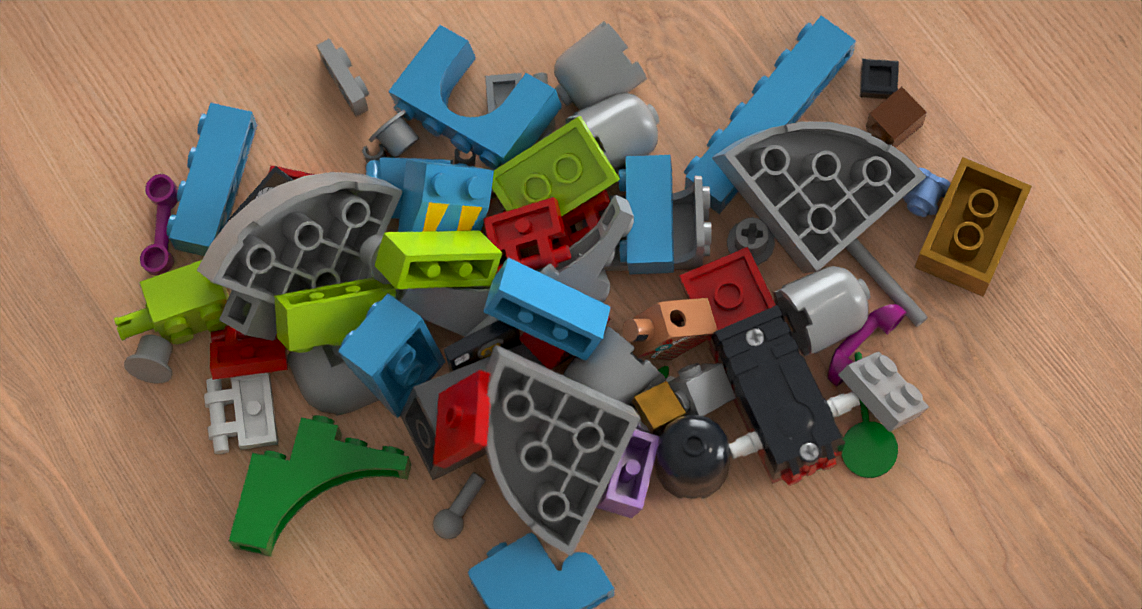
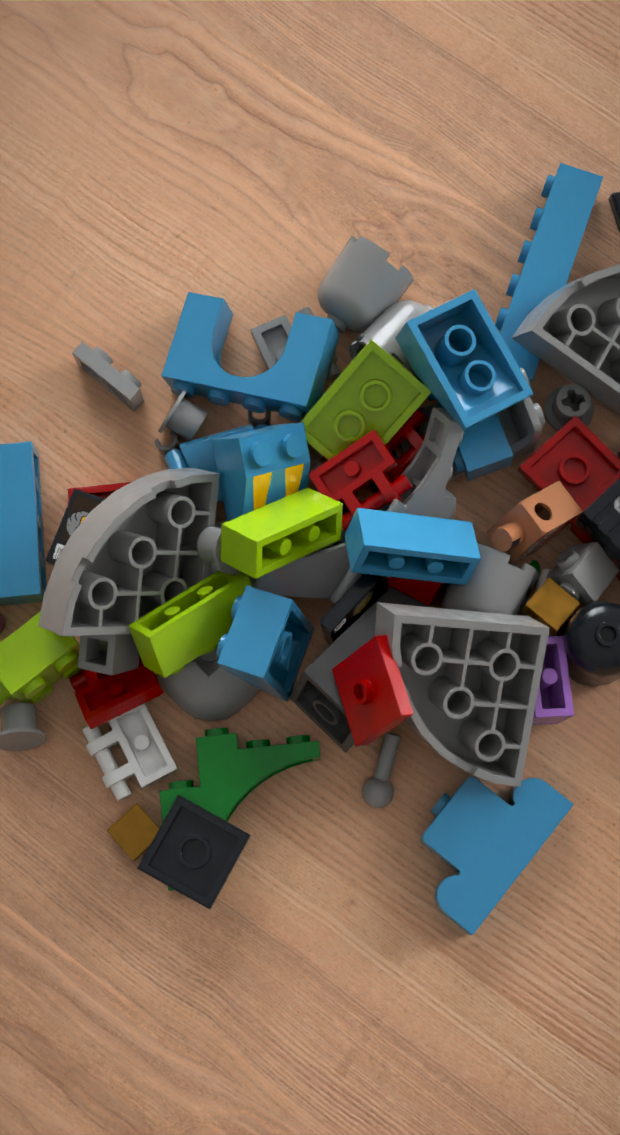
camera: 20 degrees left, 5 degrees up
(220, 485) = (134, 831): none -> pearl gold tile
(263, 514) = (194, 852): none -> black tile
(653, 160) = (463, 360): none -> dark azure slope

